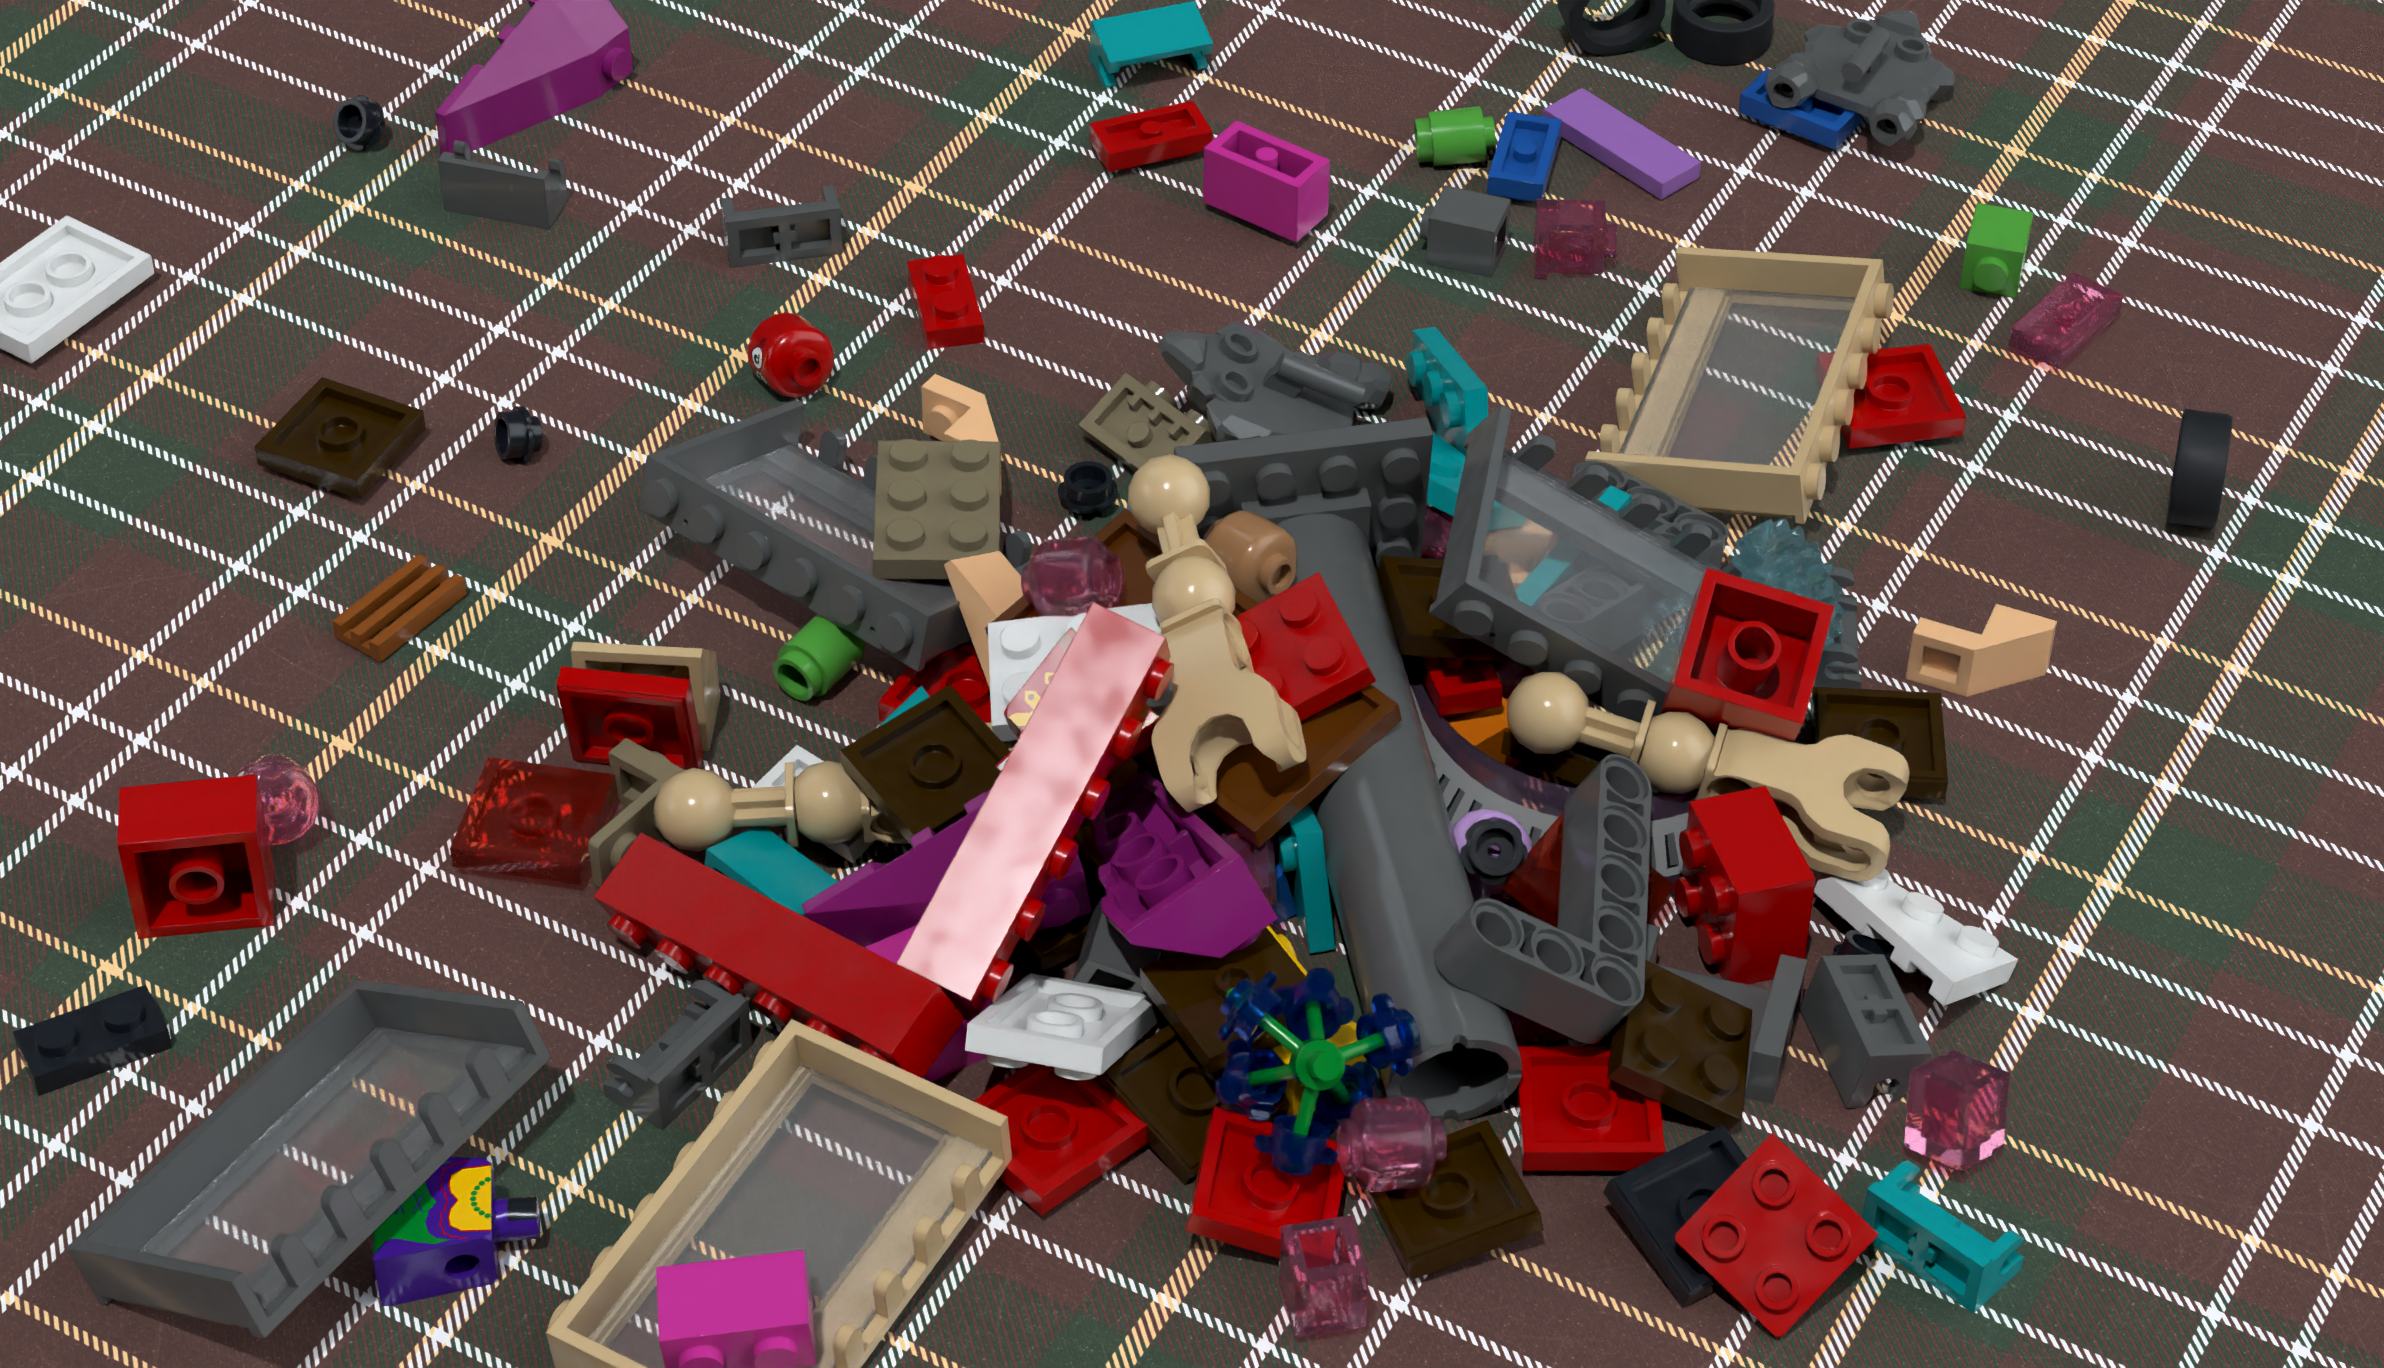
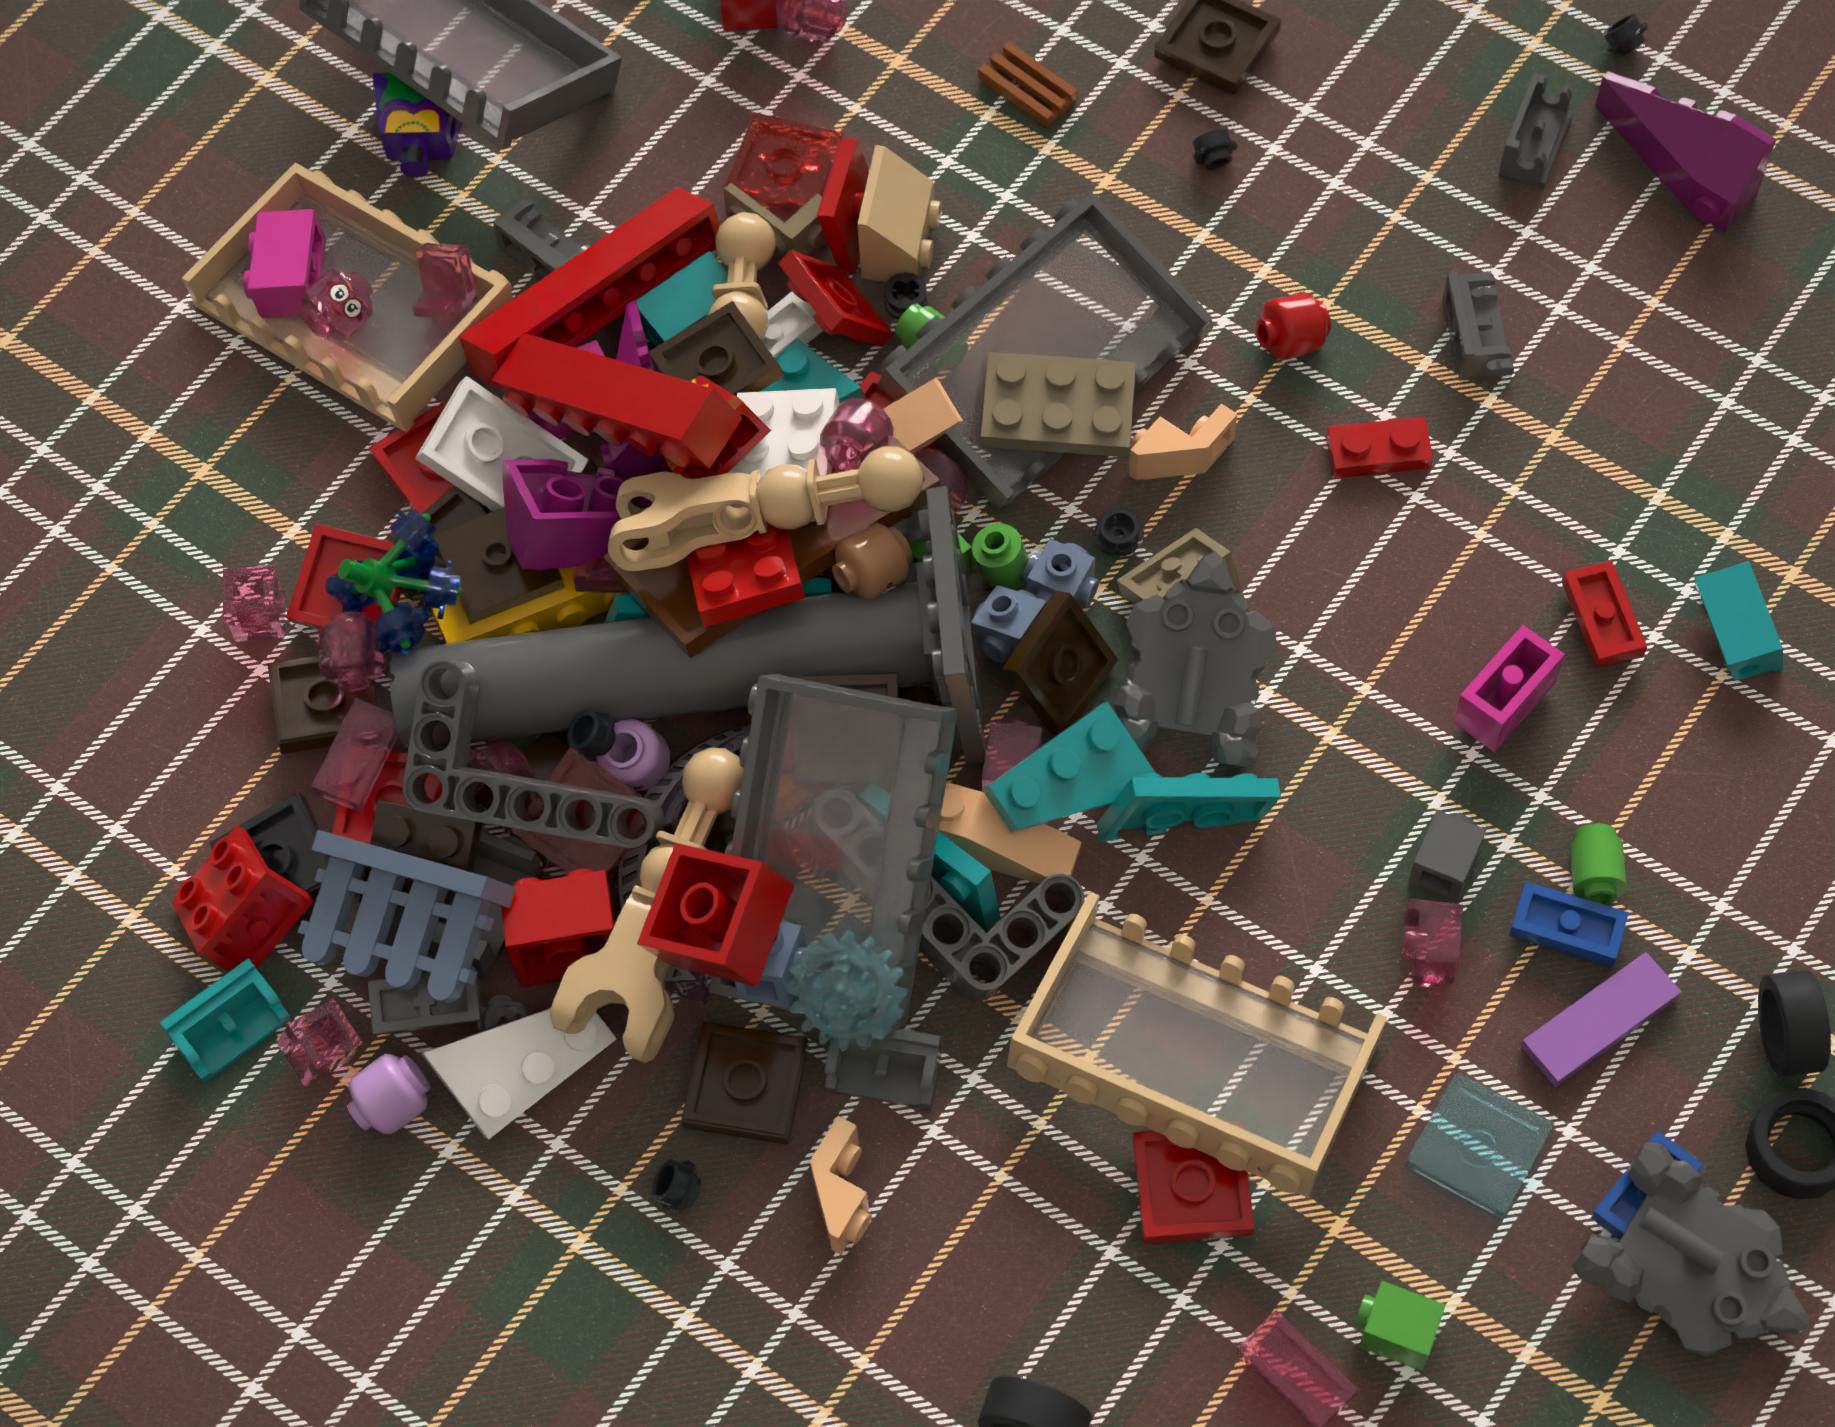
camera: 100 degrees right, 20 degrees up
(745, 681) = (905, 284): none -> black bush
(787, 723) = (835, 299): none -> red plate
(787, 1099) = (445, 281): none -> clear pink bracket
(827, 1222) = (337, 304): none -> clear pink head
(1542, 1124) = (356, 756): none -> clear pink plate
(1734, 1018) = (418, 923): none -> sand blue fence
(1779, 214) = (1479, 1144): none -> clear light blue tile
(2002, 1038) = (388, 1094): none -> lavender head
(2029, 801) = (676, 1185): none -> black plate

